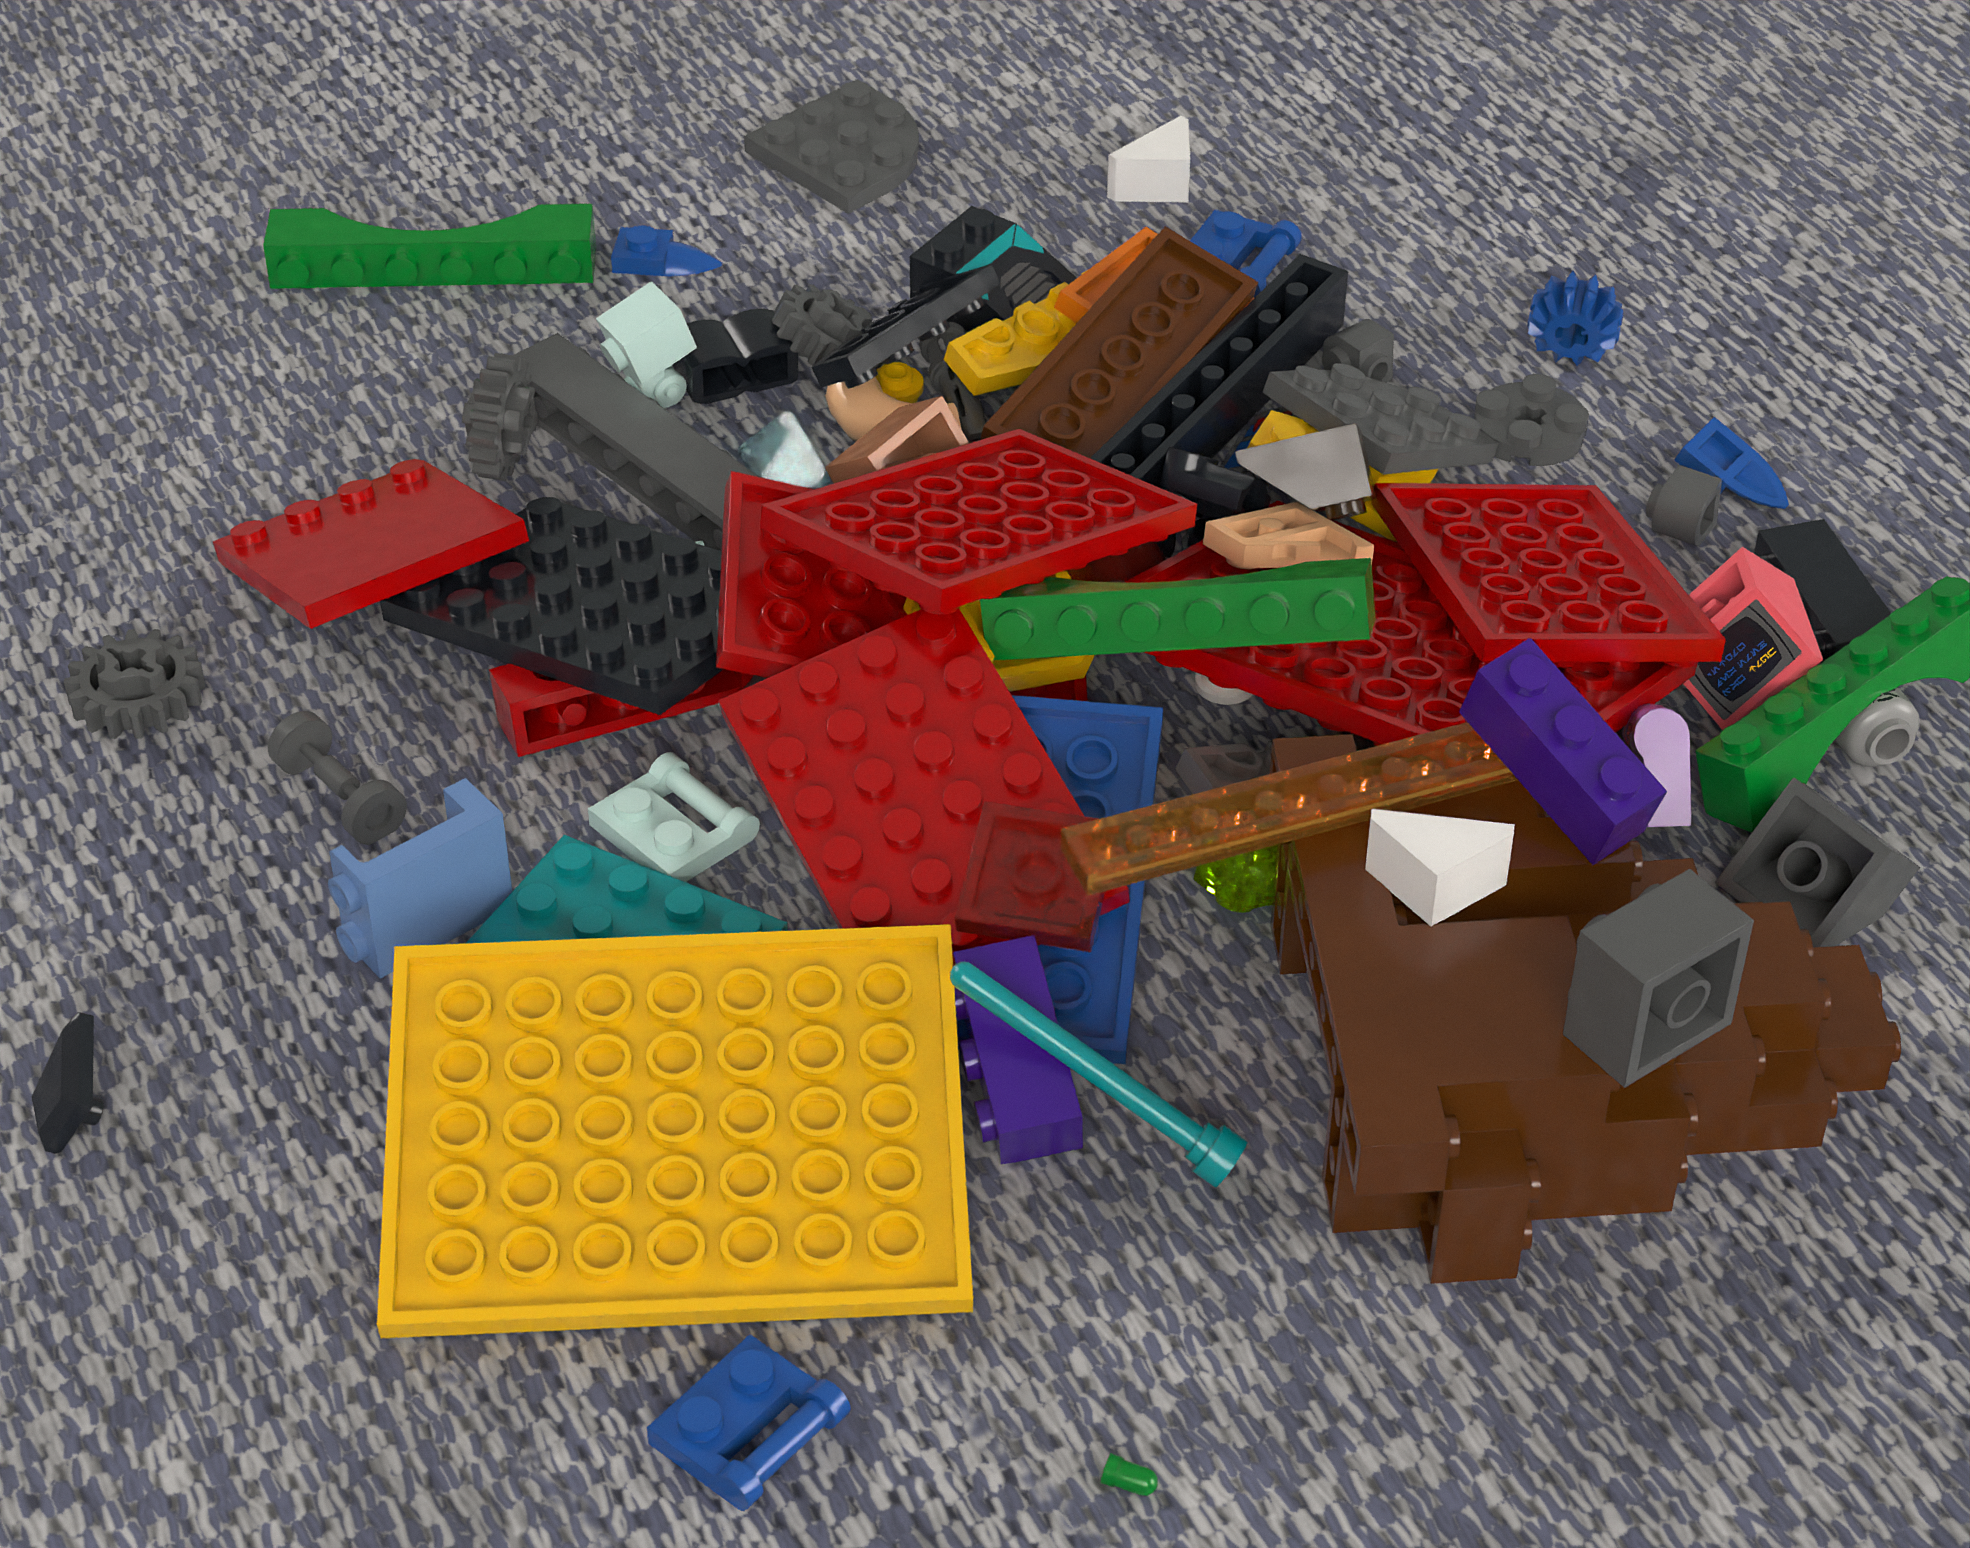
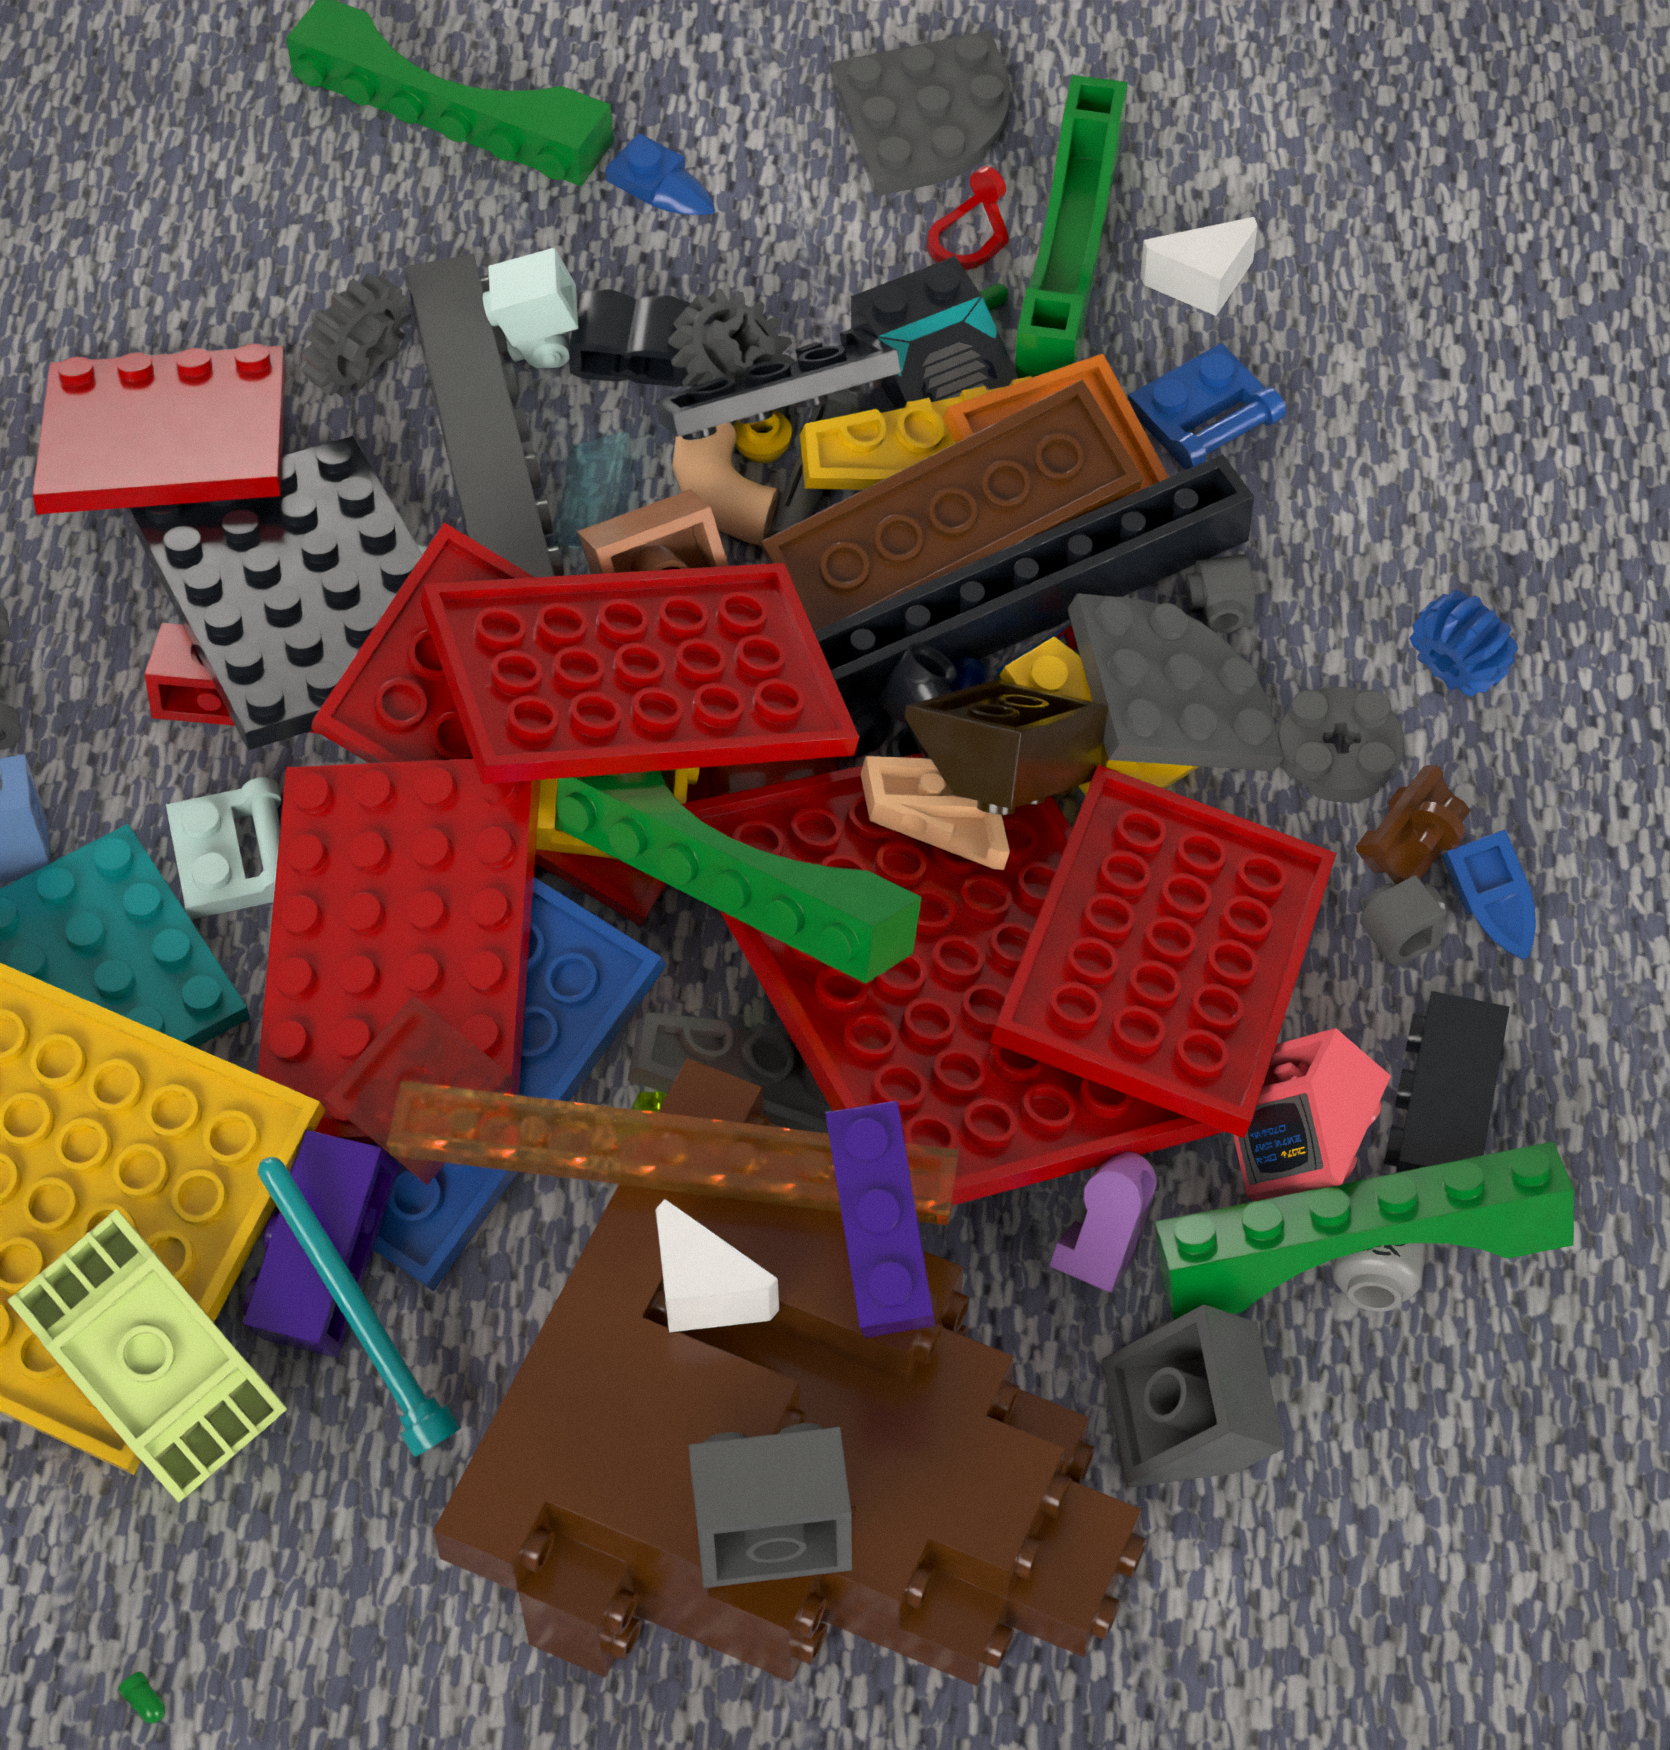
camera: 30 degrees right, 15 degrees up
(943, 1181) = (147, 1355): none -> yellowish green plate
(953, 162) = (988, 188): none -> red piece
(1007, 120) = (1073, 228): none -> green arch
(1644, 444) = (1417, 828): none -> reddish brown hips

